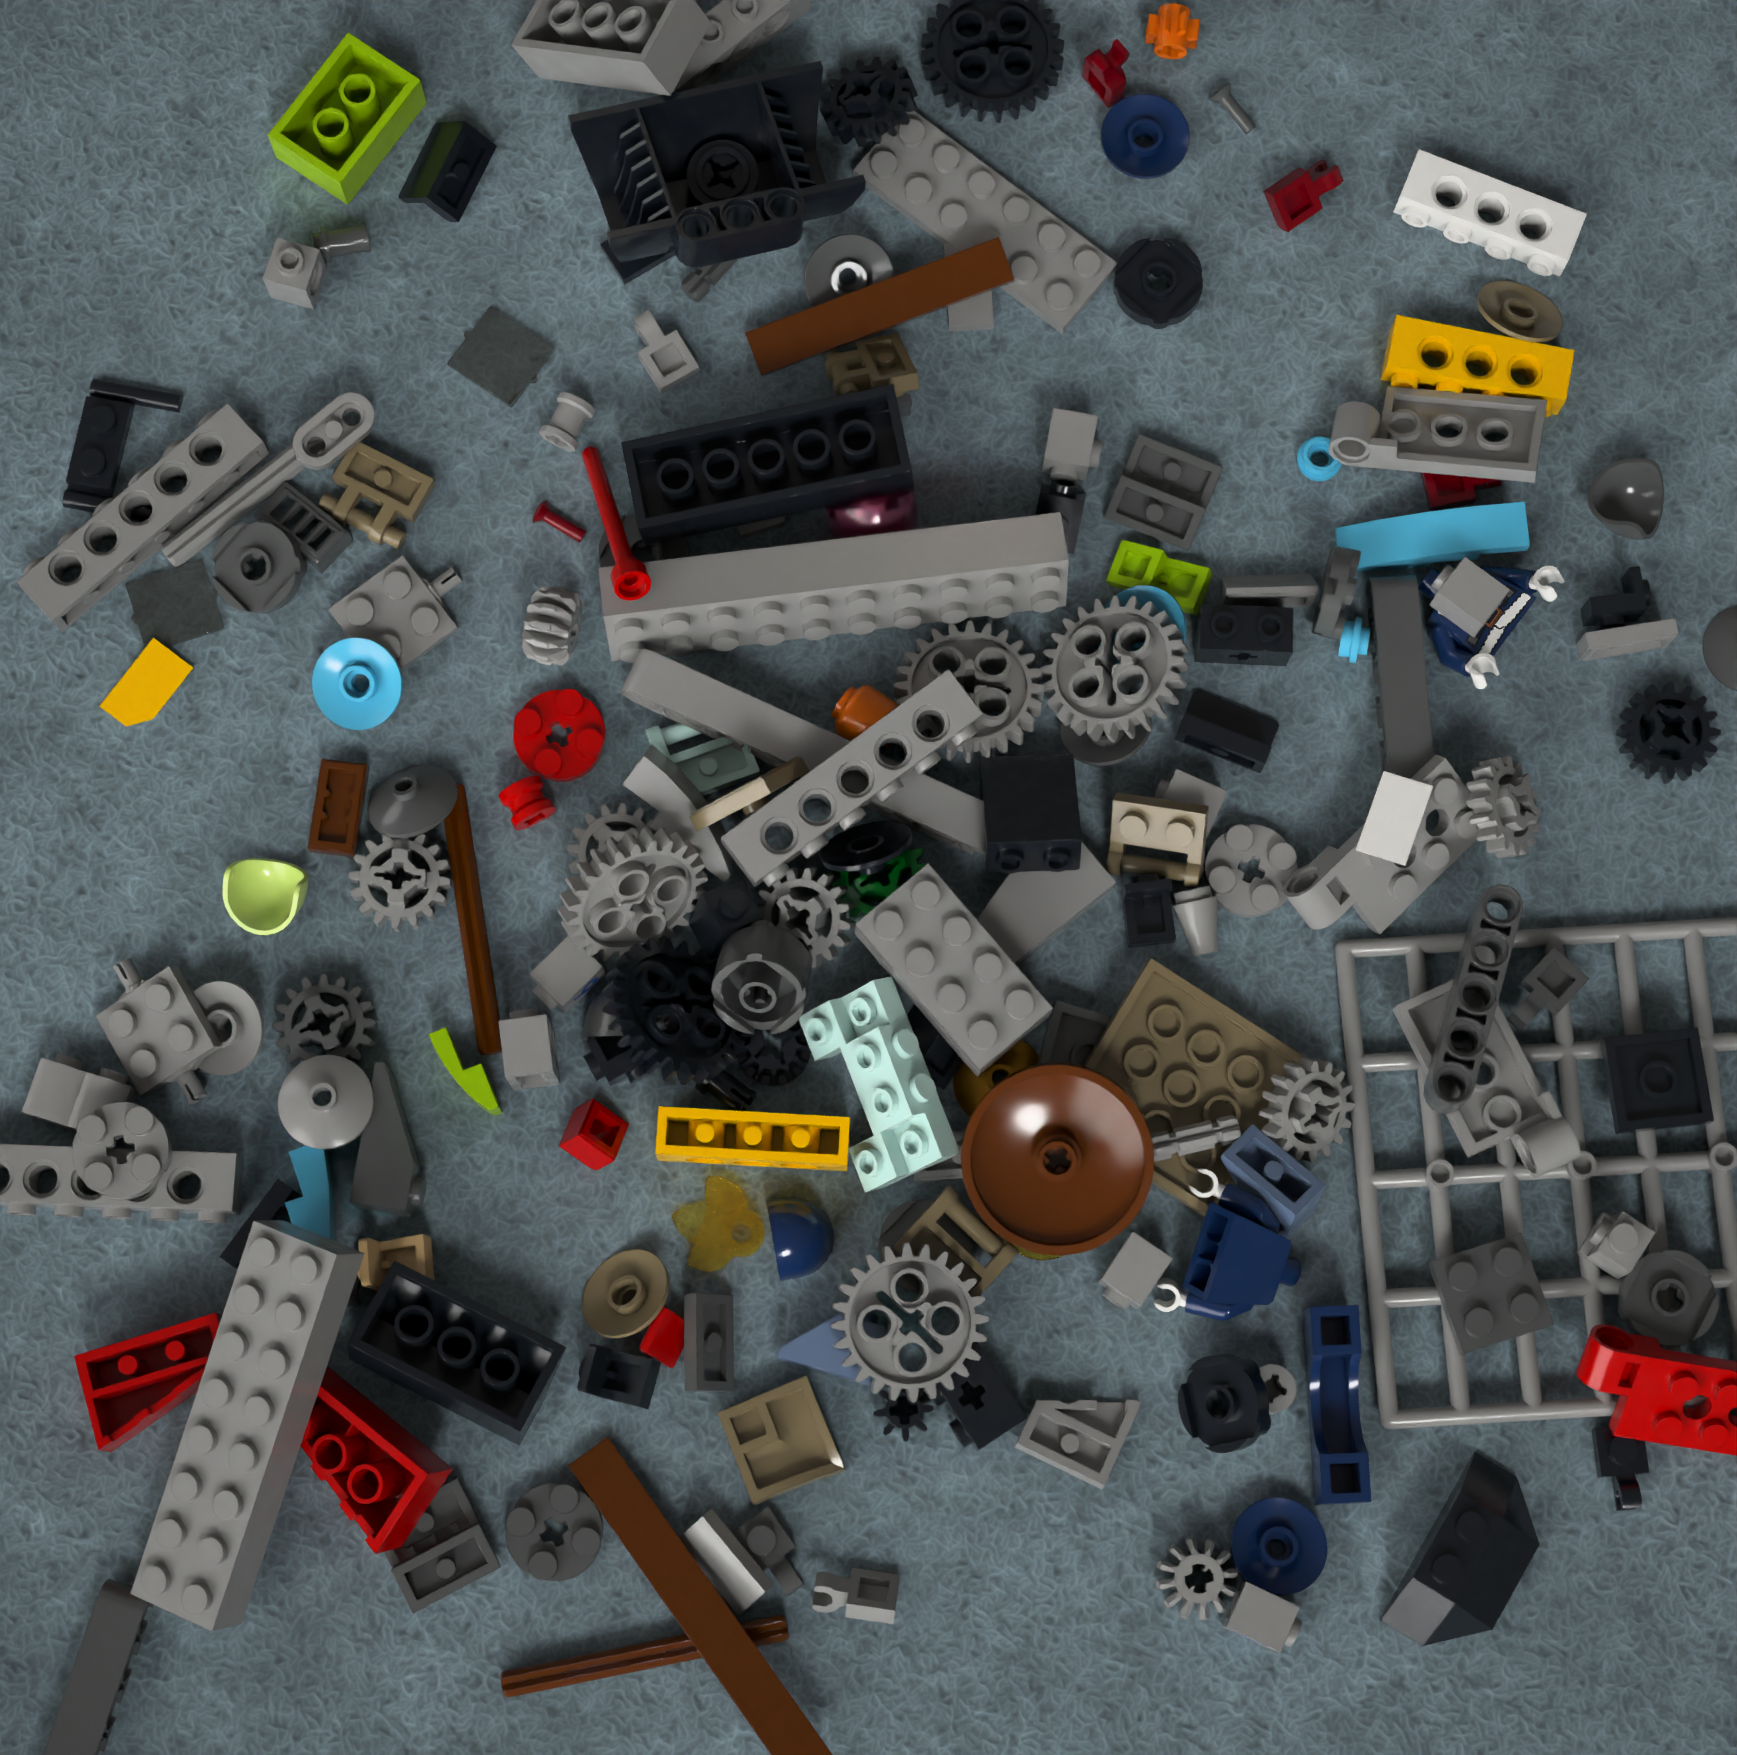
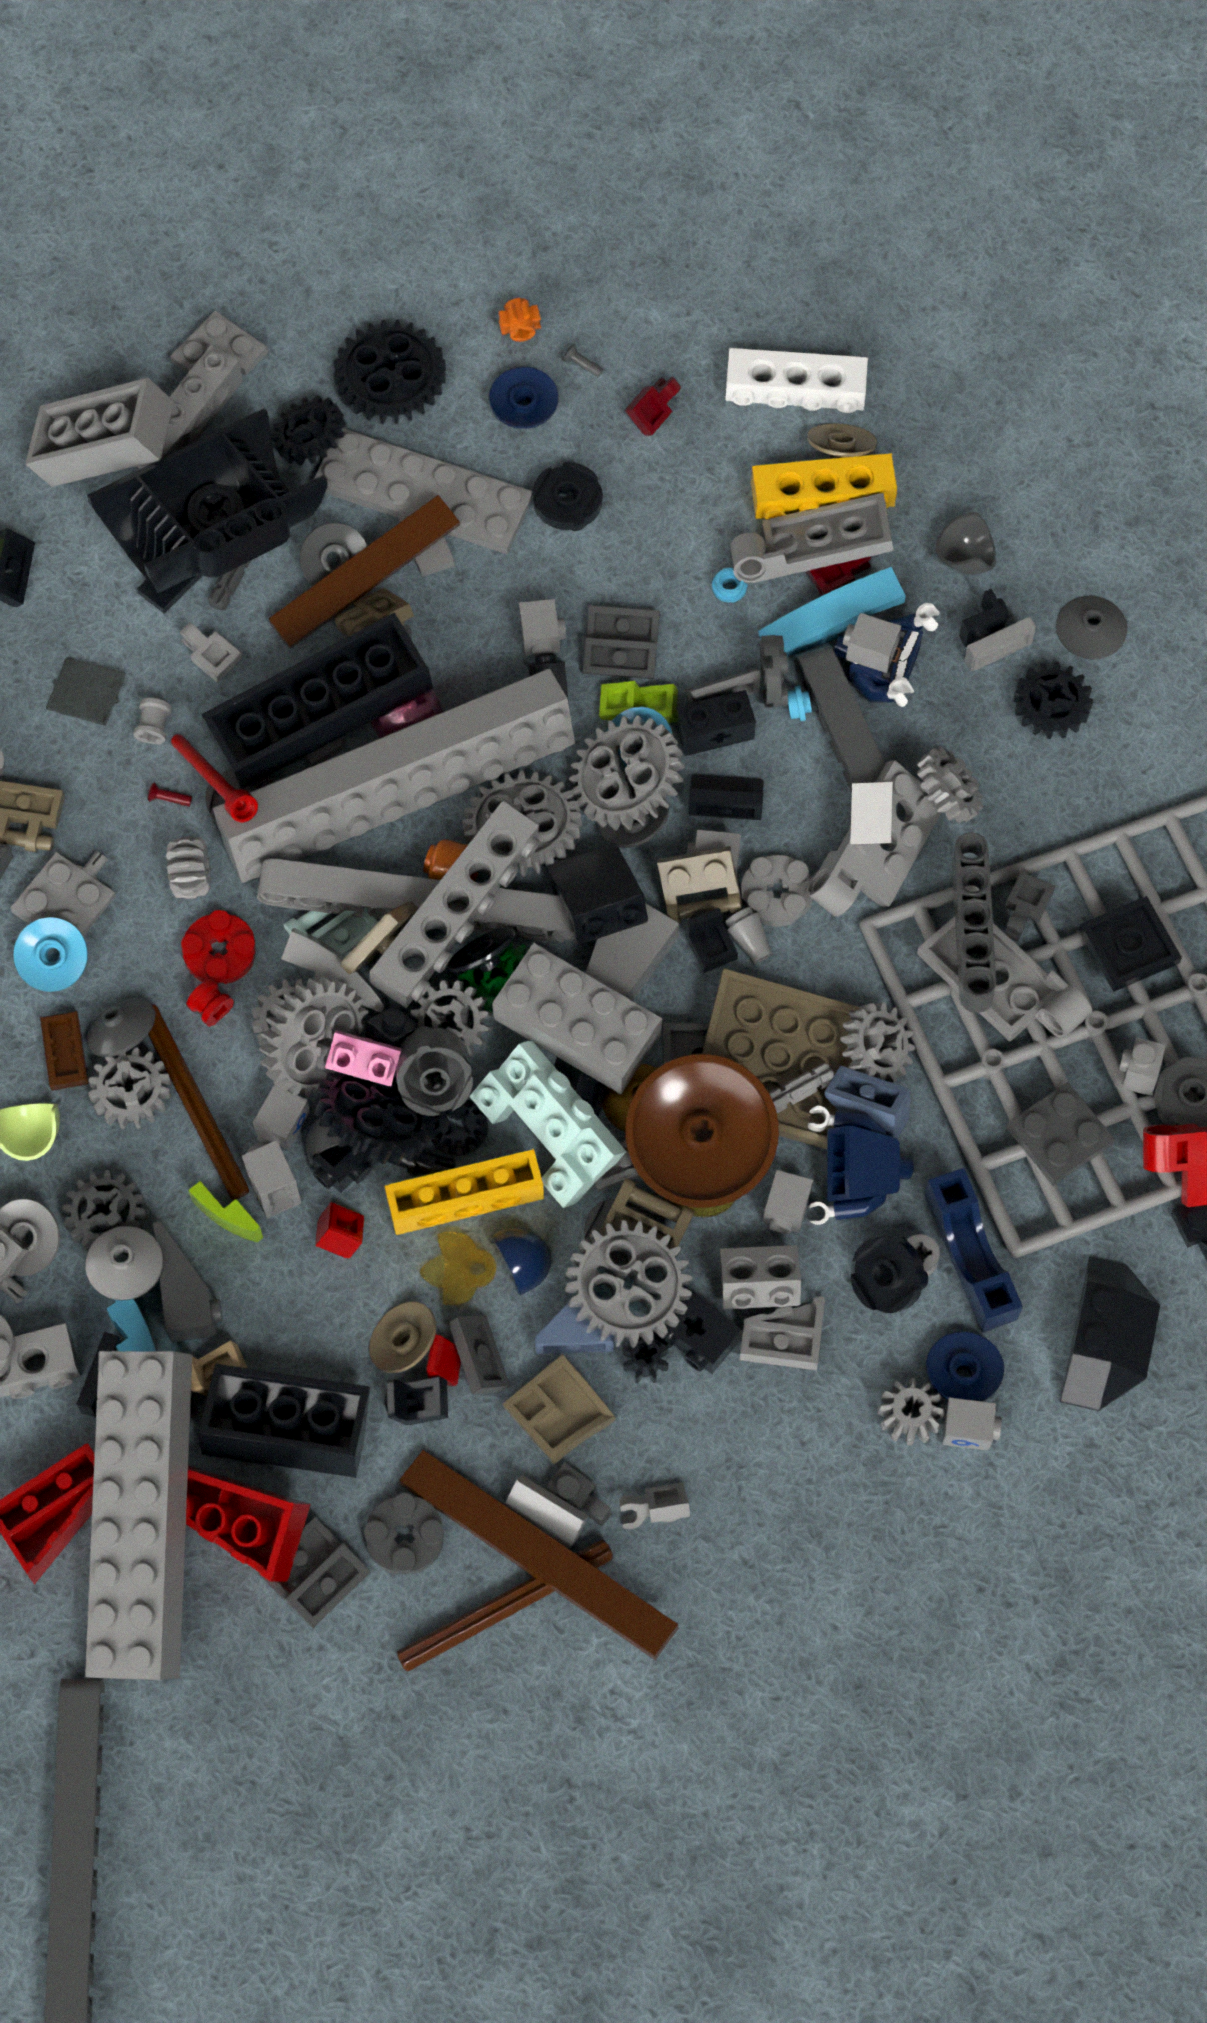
camera: 15 degrees left, 10 degrees down
(682, 940) = (363, 1058): none -> bright pink hips
(1073, 1345) = (760, 1277): none -> light grey brick
(1105, 73) = (478, 361): dark red plate -> none

